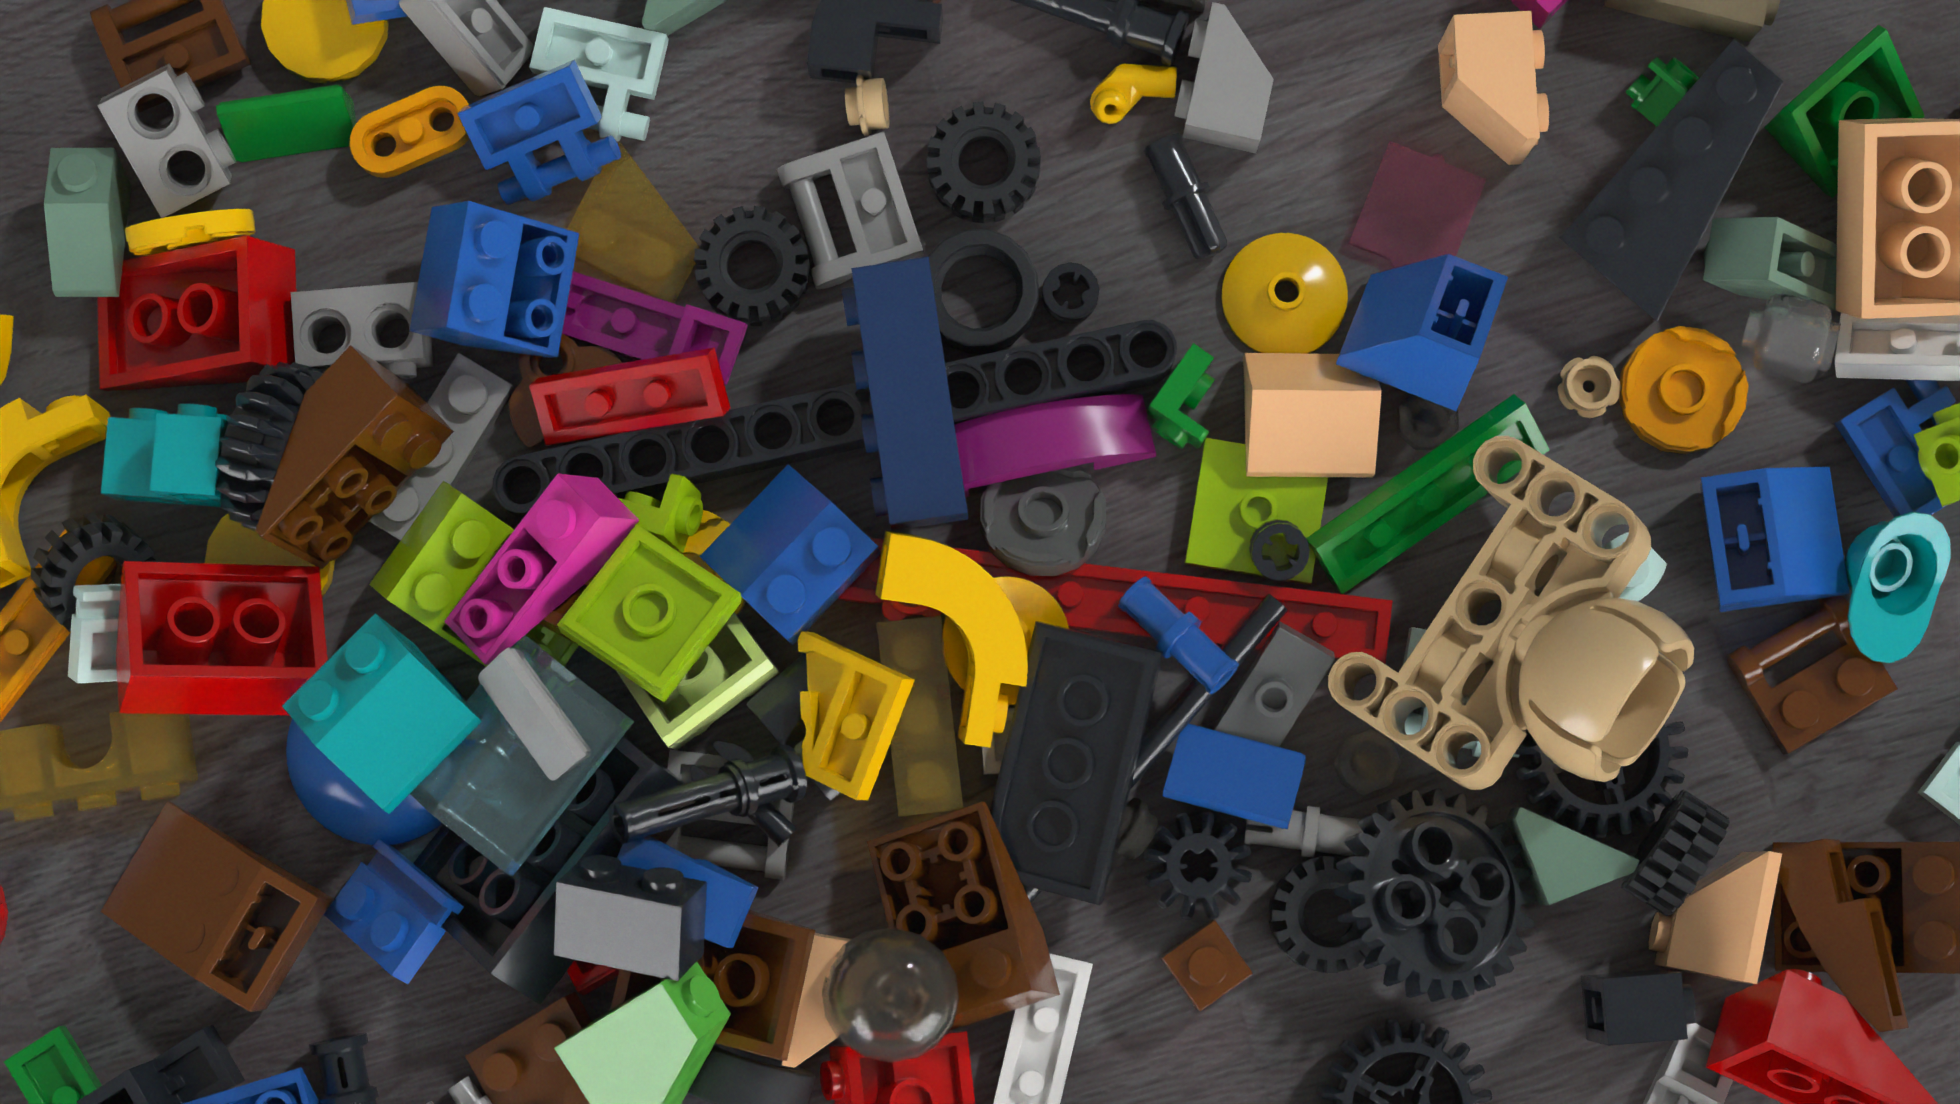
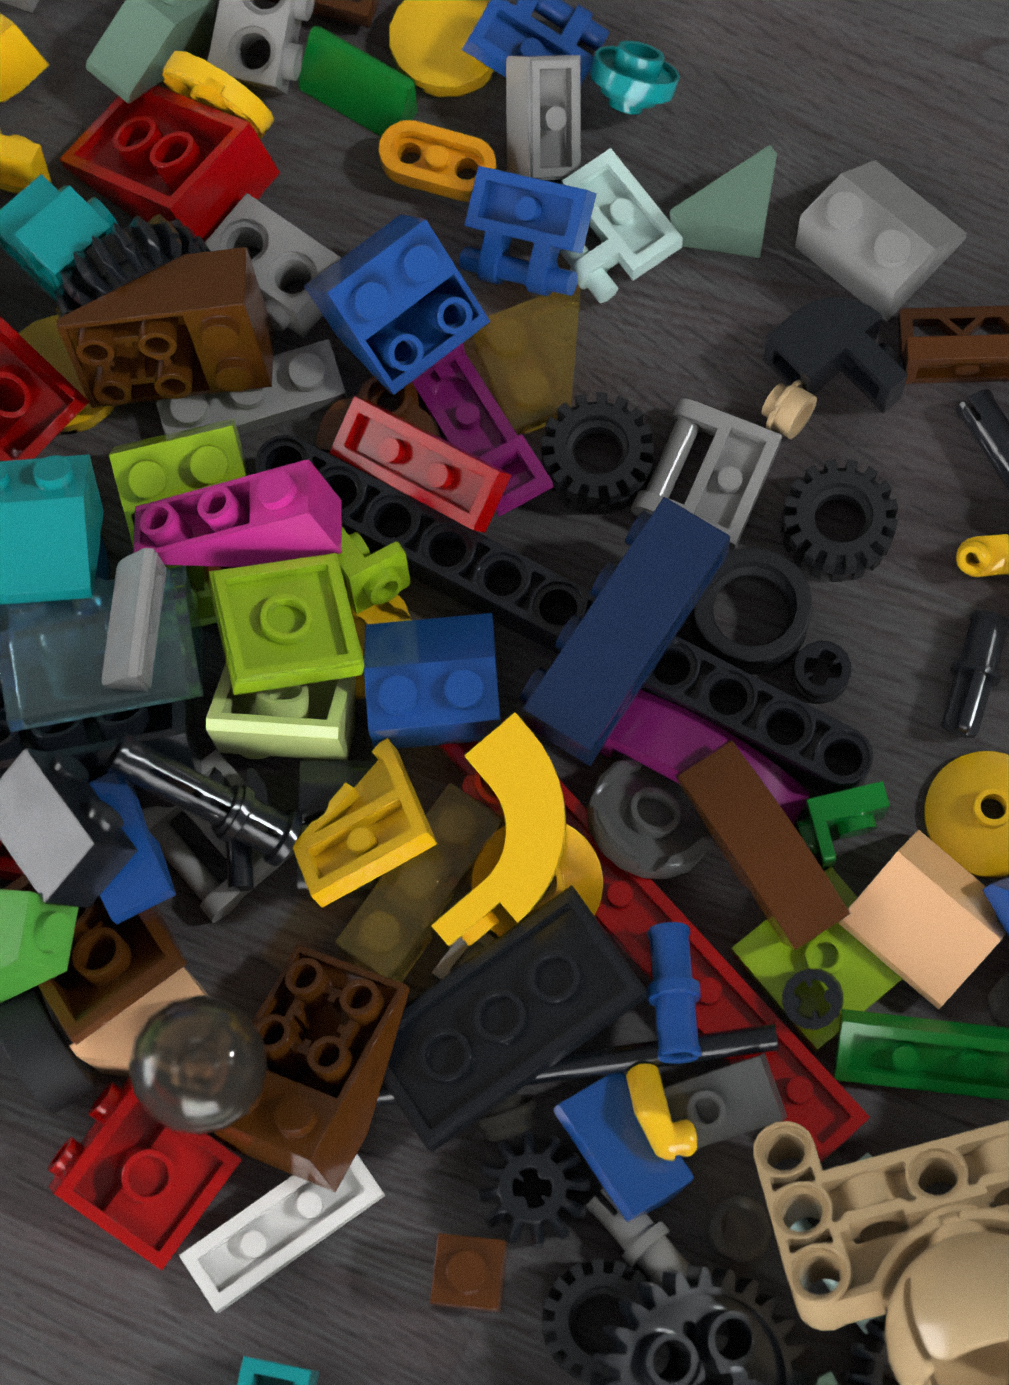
camera: 45 degrees right, 10 degrees down
(1147, 469) = (762, 845): none -> reddish brown slope
(1240, 736) = (651, 1110): none -> yellow arm

